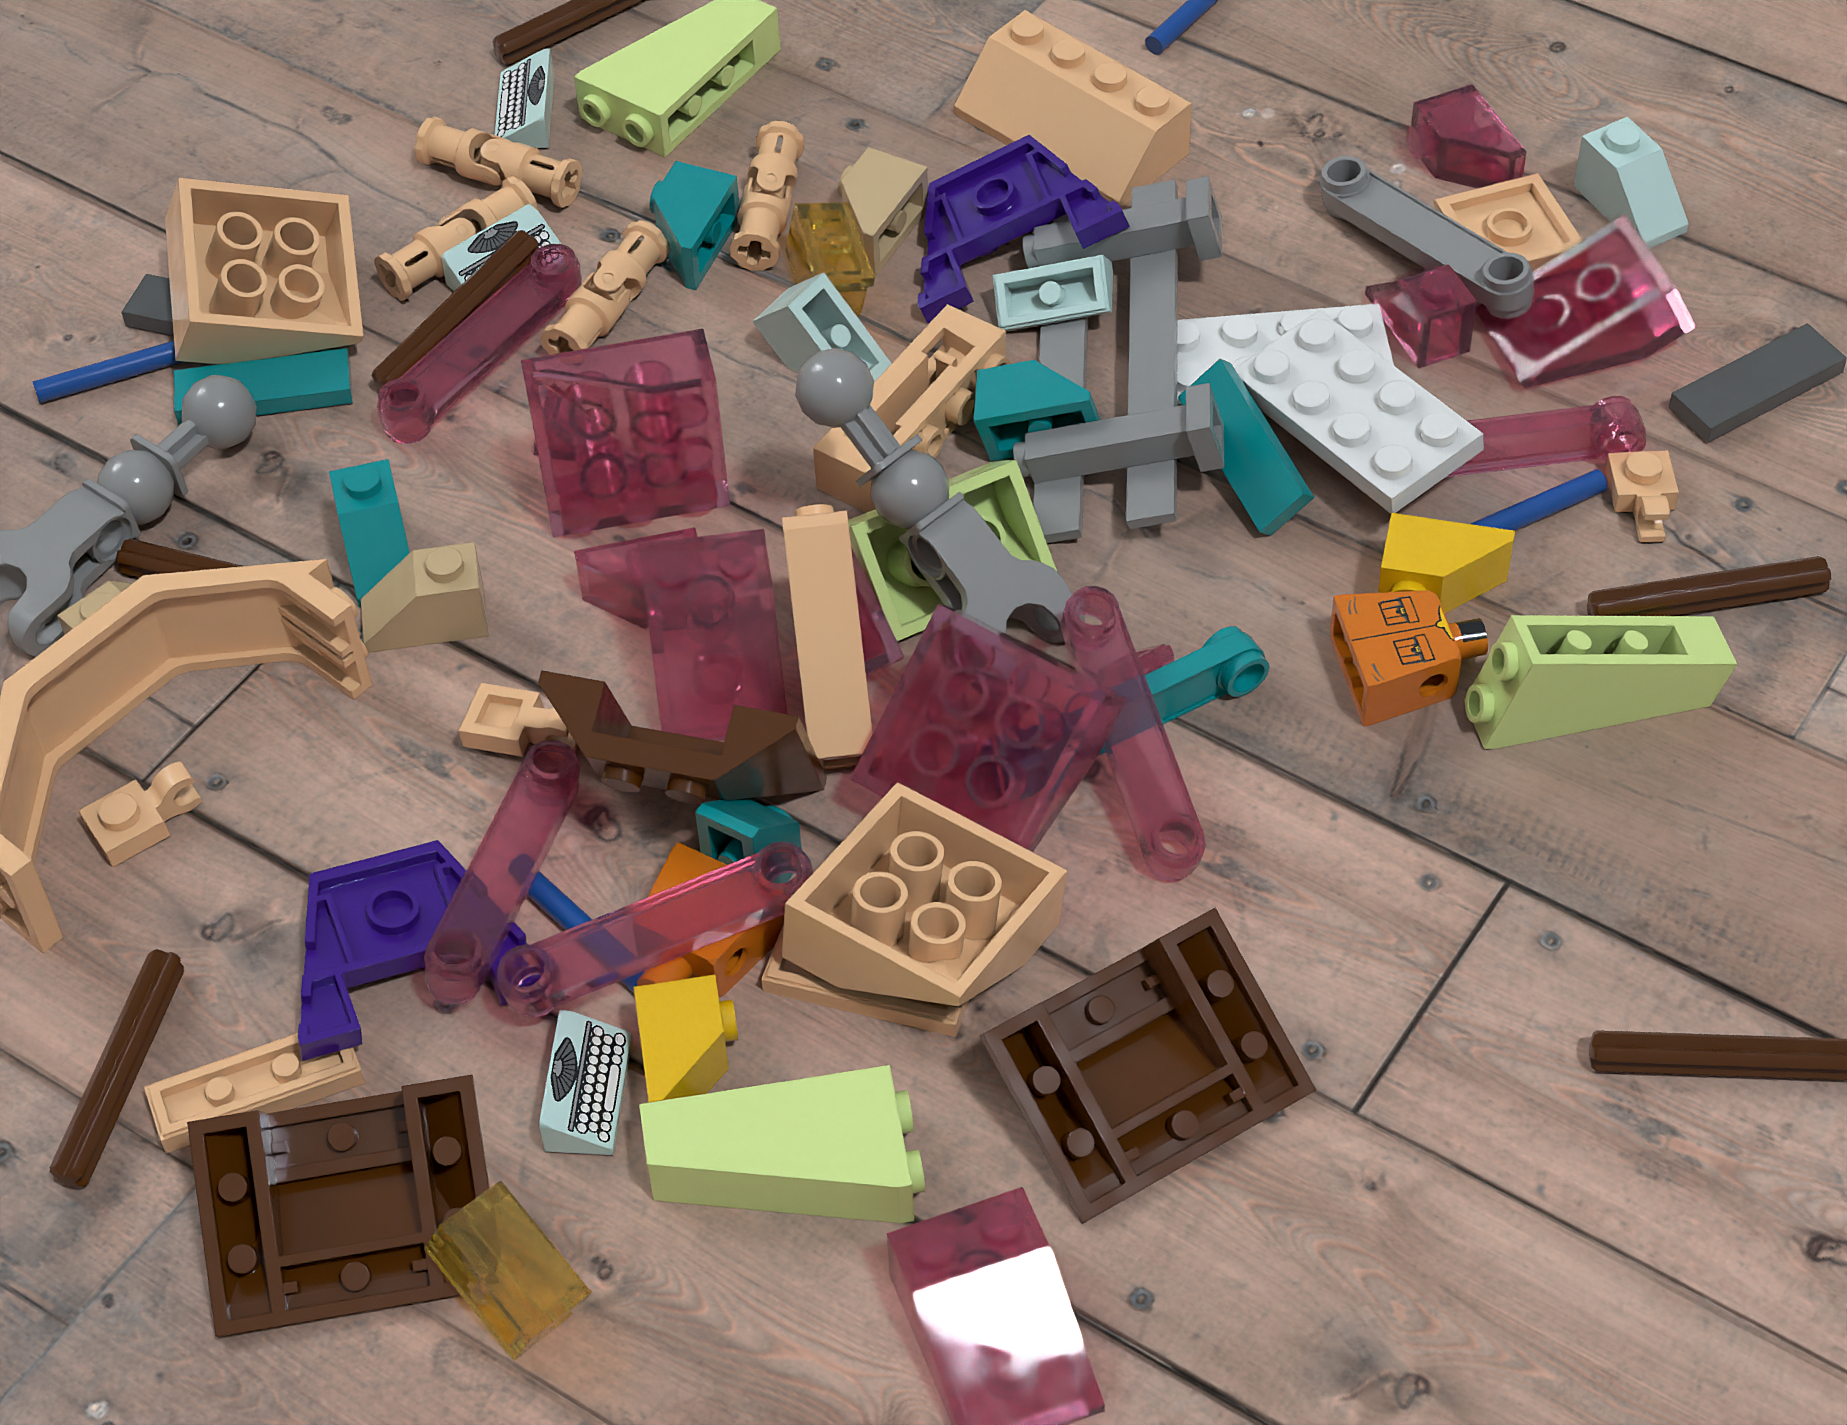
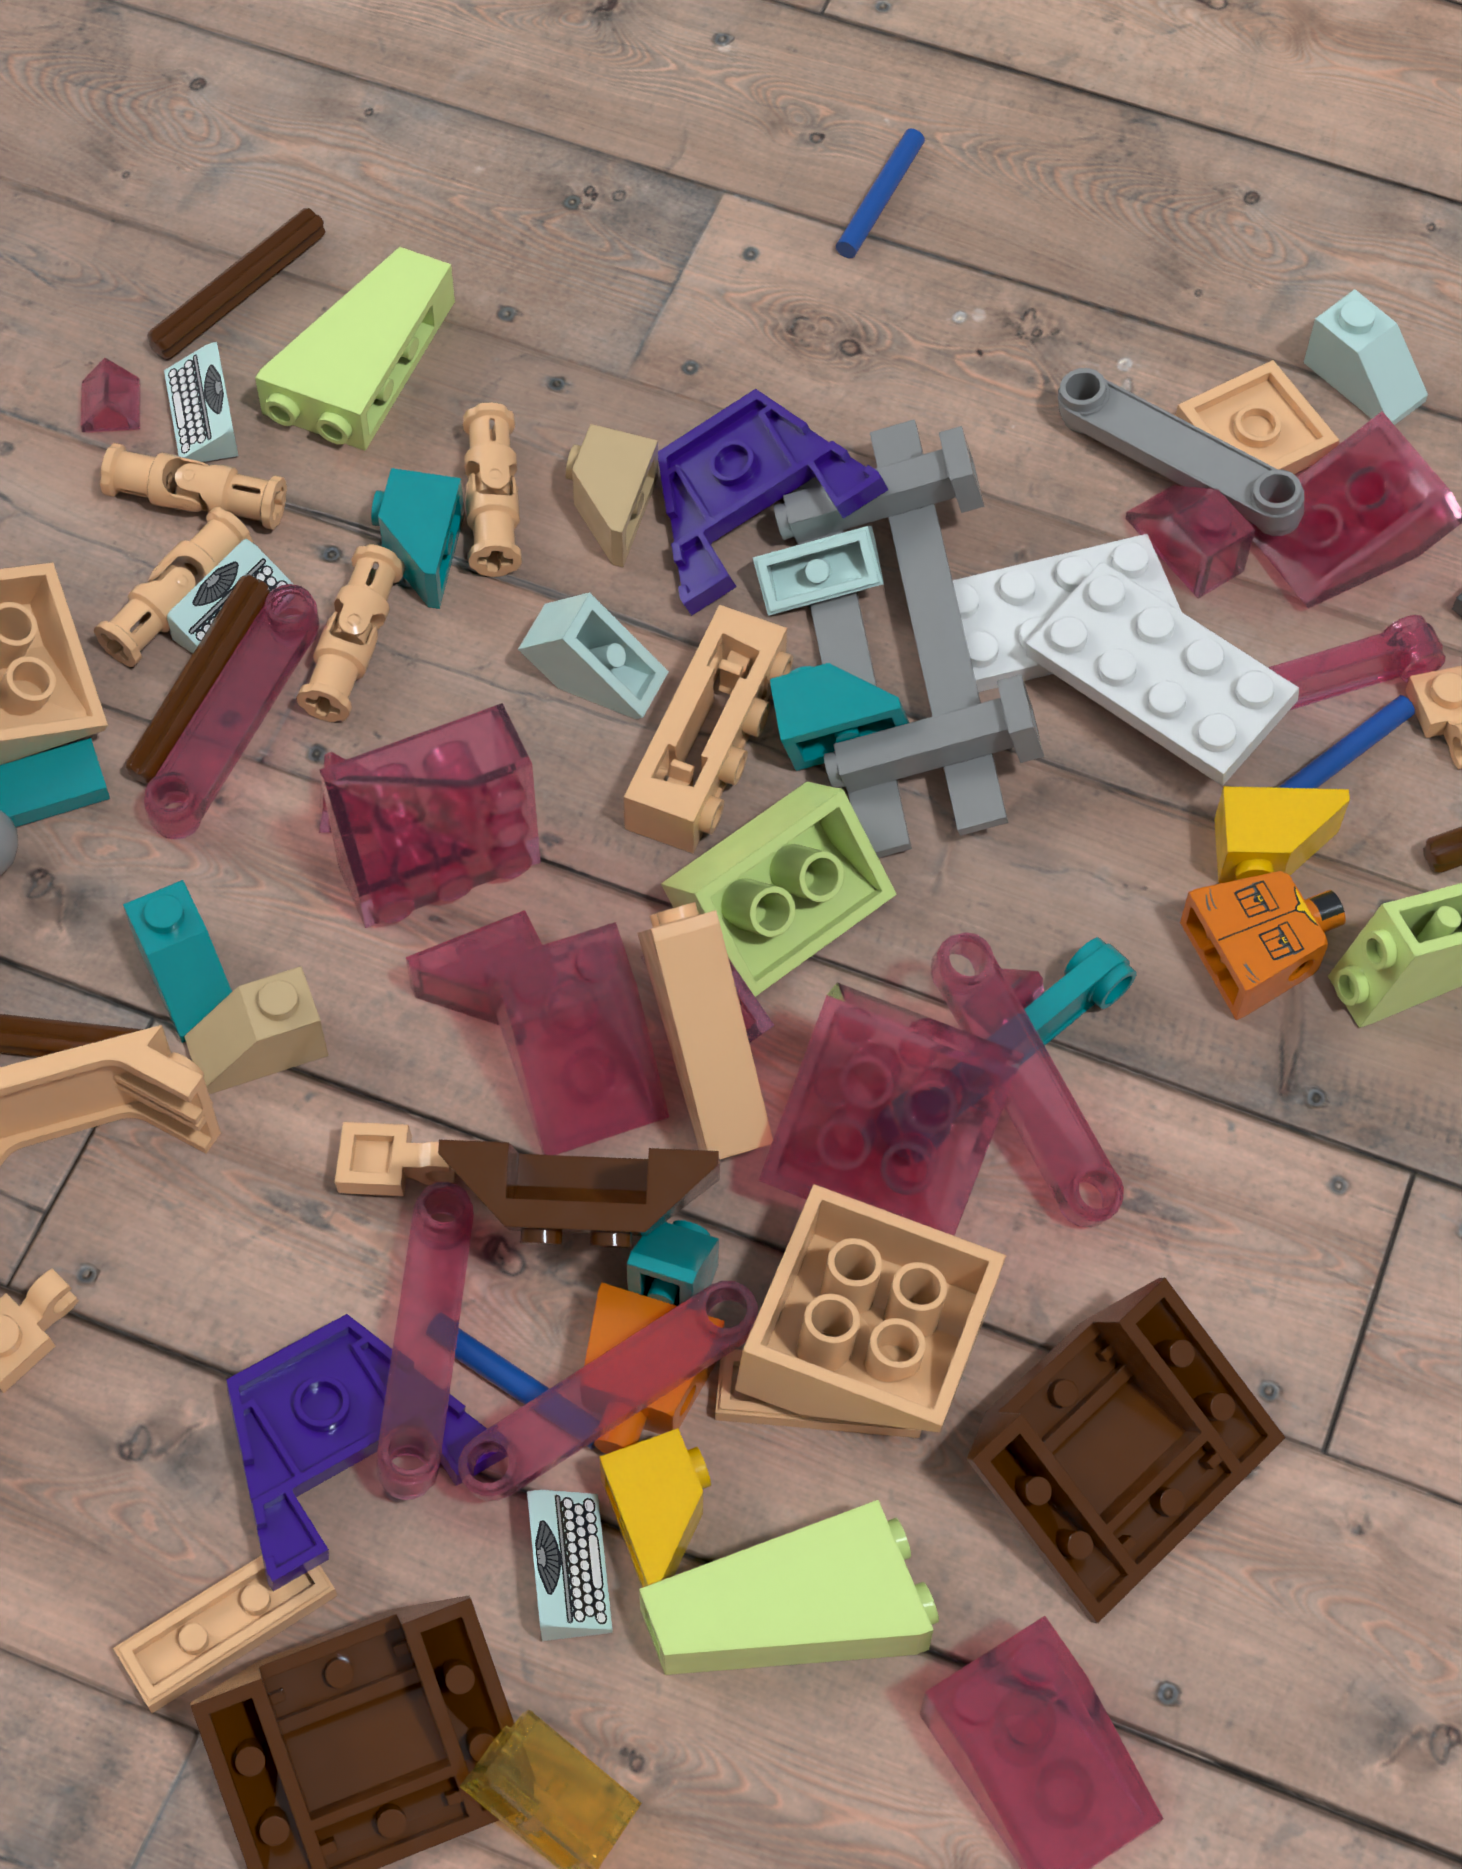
camera: 15 degrees left, 10 degrees up
(116, 1070) = (78, 1632): reddish brown axle -> none
(446, 88) = (110, 399): none -> clear pink slope
(828, 241) = (576, 553): clear yellow hinge -> none
(911, 491) = (790, 888): light grey piece -> none
(1078, 105) = (789, 338): light nougat slope -> none
(1253, 454) = (1070, 737): teal tile -> none
(1464, 140) = (1192, 330): clear pink slope -> none

